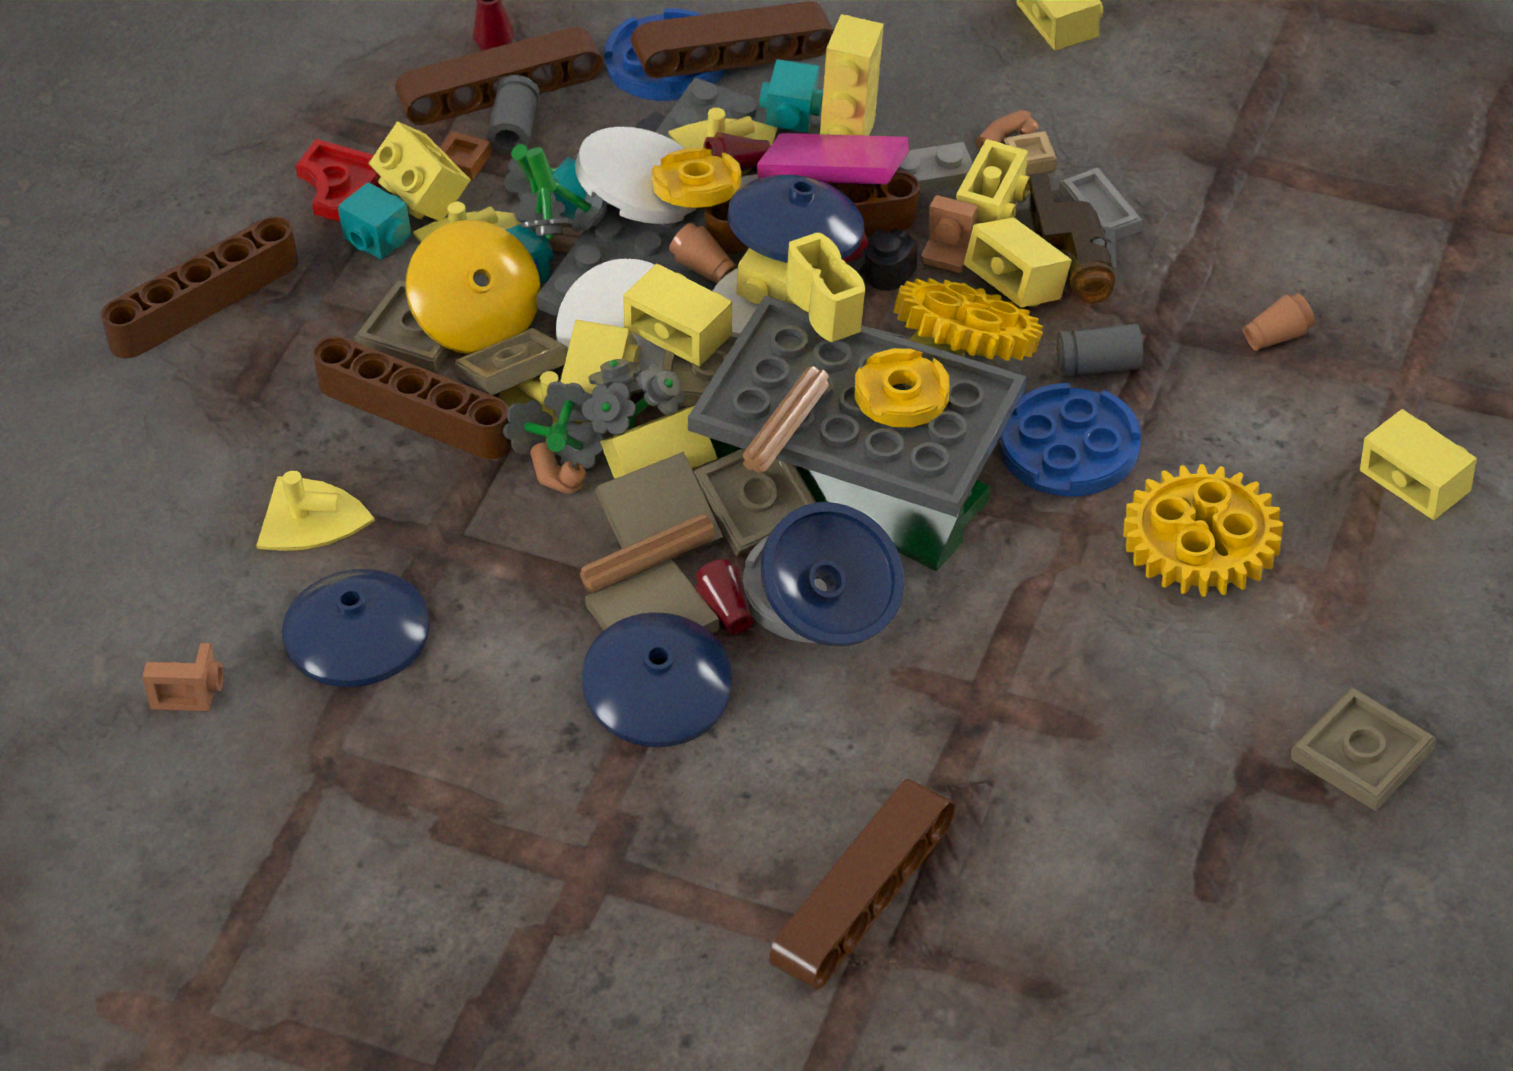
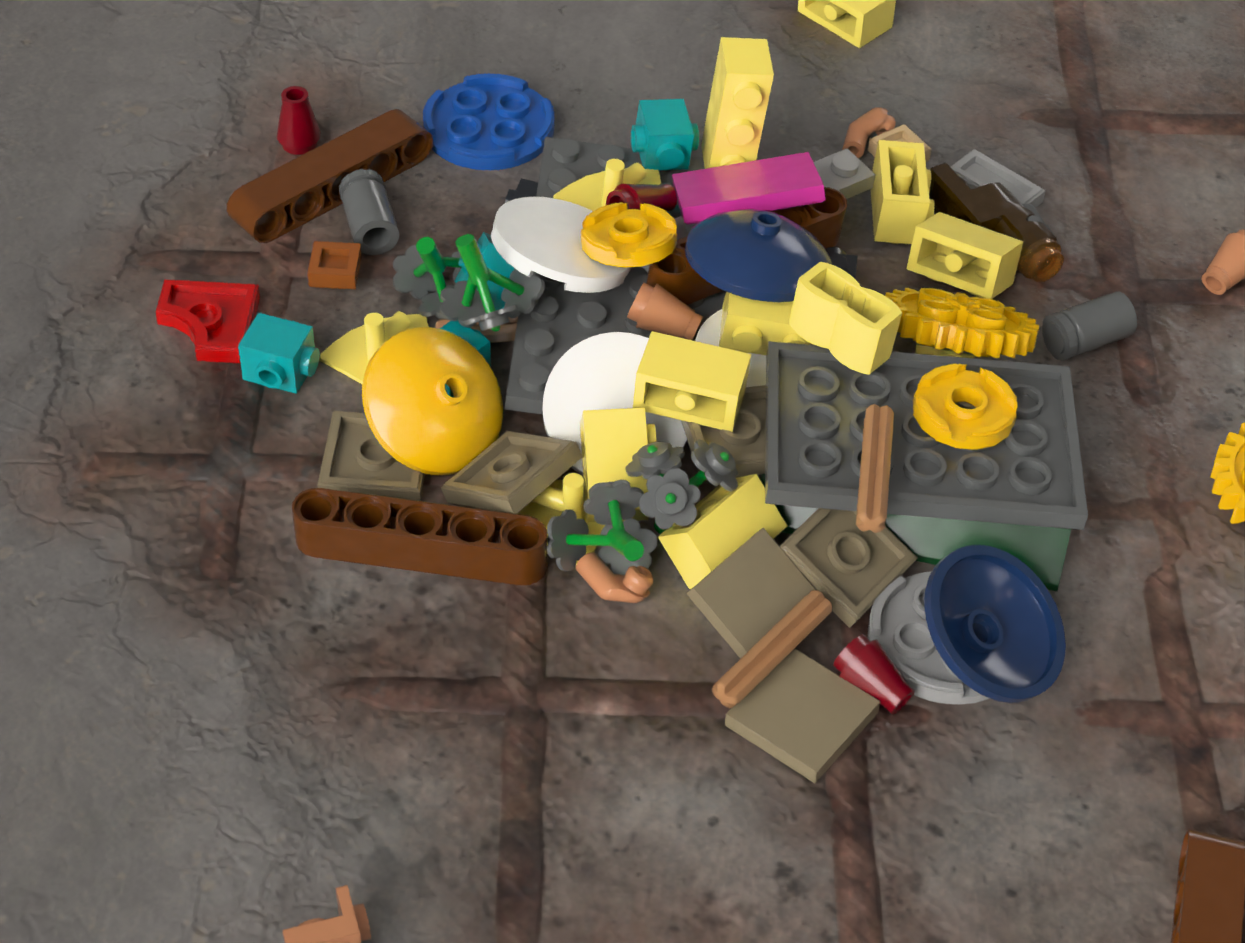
camera: 25 degrees left, 0 degrees up
(199, 287) = (114, 470): reddish brown beam -> none
(309, 515) = (364, 698): light yellow shield -> none
(355, 627) = (490, 839): dark blue dish -> none
(418, 172) = (303, 291): light yellow brick -> none
(652, 701) = (838, 808): dark blue dish -> none
(732, 39) = (558, 93): reddish brown beam -> none
(949, 233) = (883, 241): nougat bracket -> none
(1070, 440) = (1123, 424): blue tile -> none

